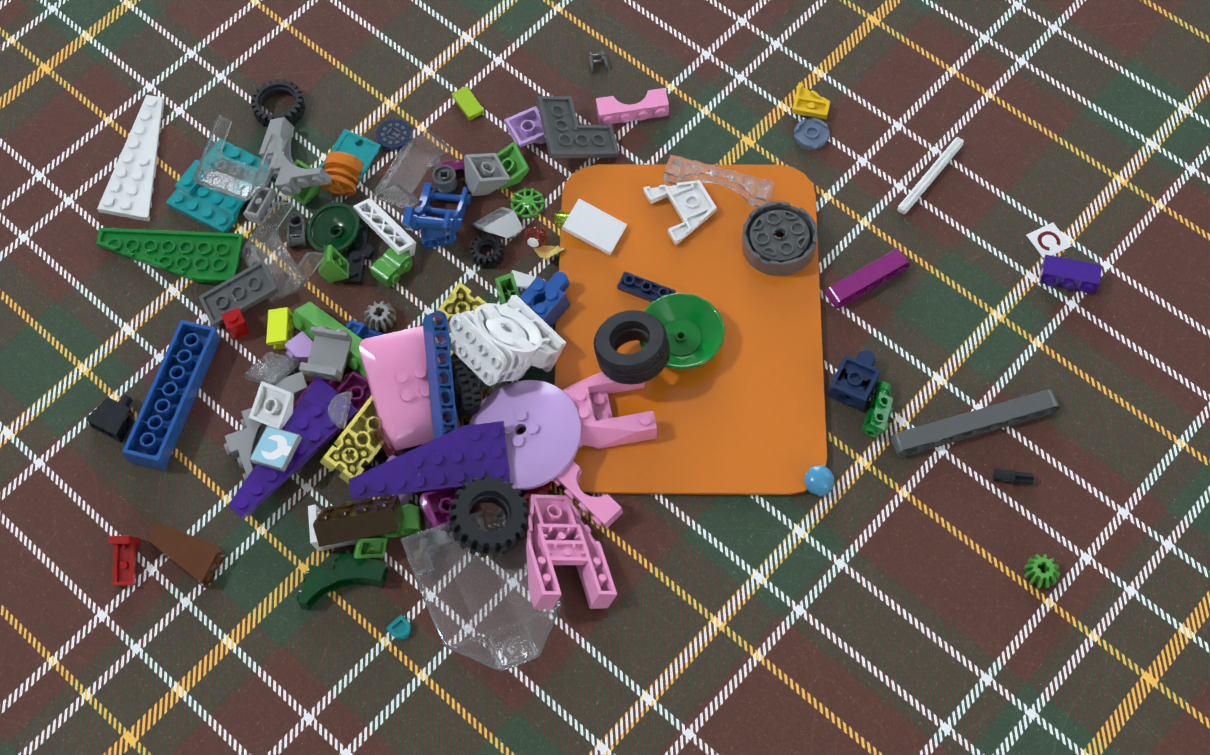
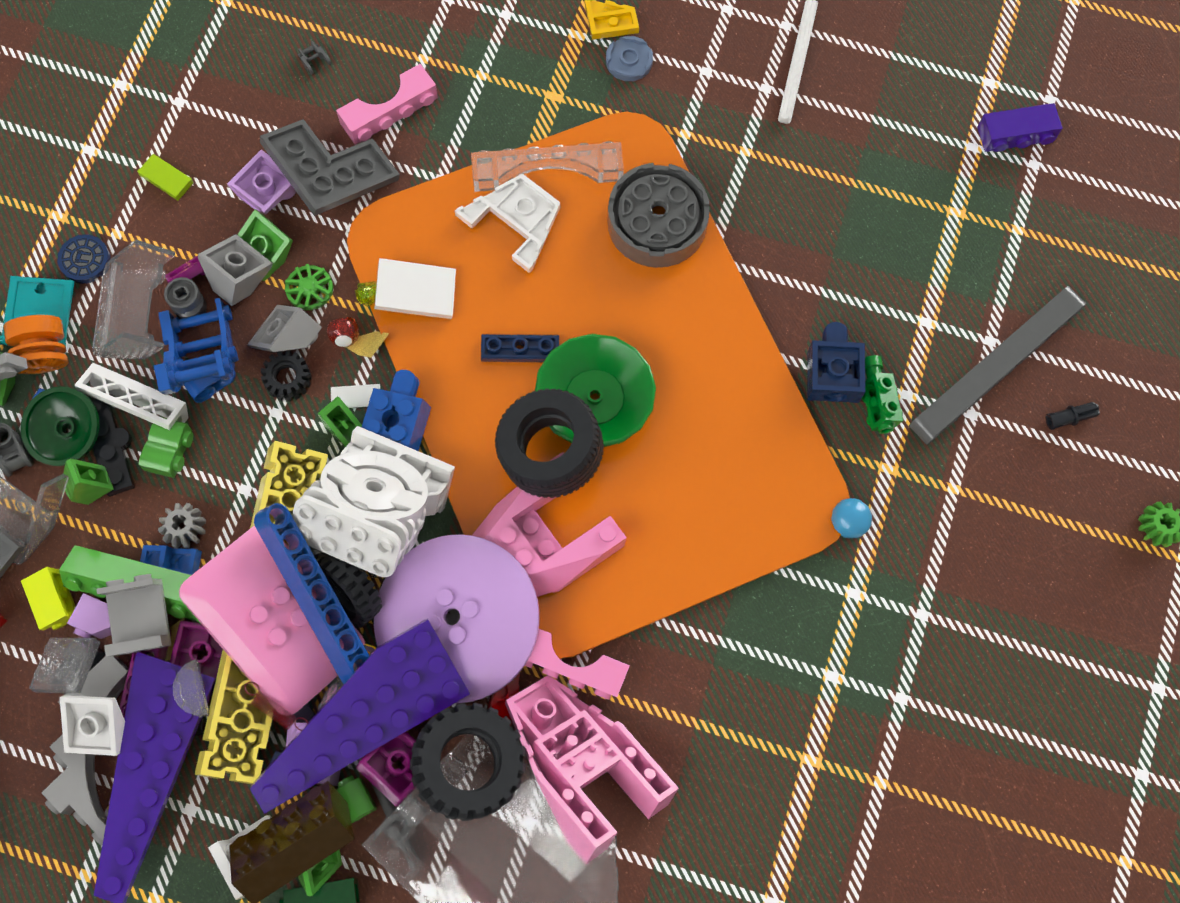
camera: 30 degrees left, 10 degrees up
(275, 448) = (125, 787): tile -> none
(867, 278) = (786, 226): magenta beam -> none
(1048, 240) = (971, 93): white sticker -> none

